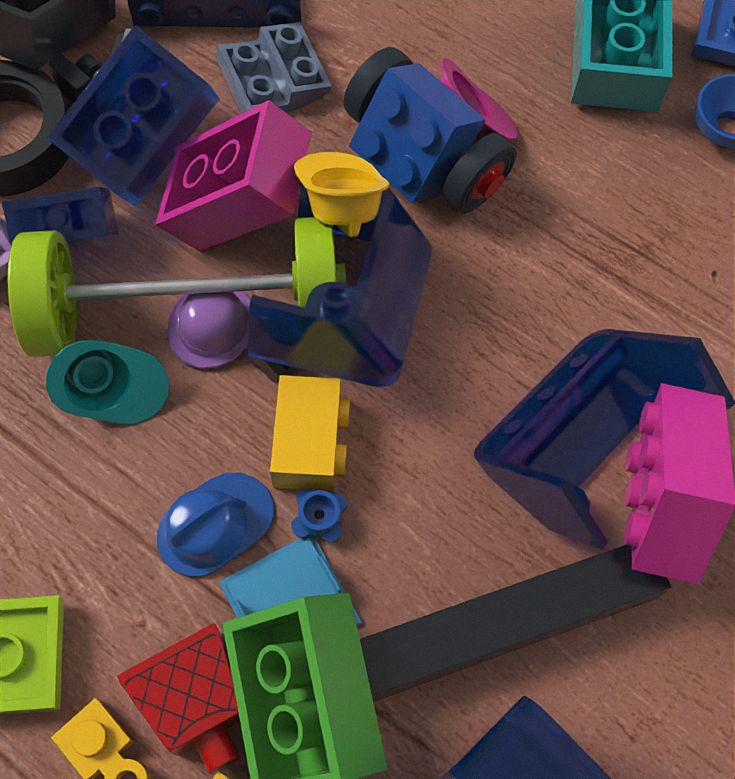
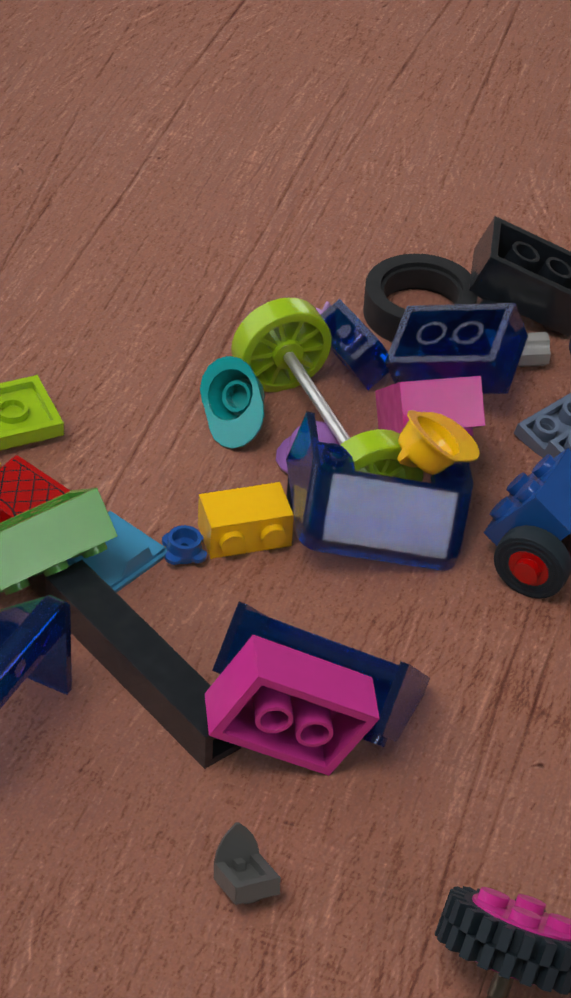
camera: 70 degrees right, 25 degrees down
(214, 524) = (152, 493): blue piece -> none

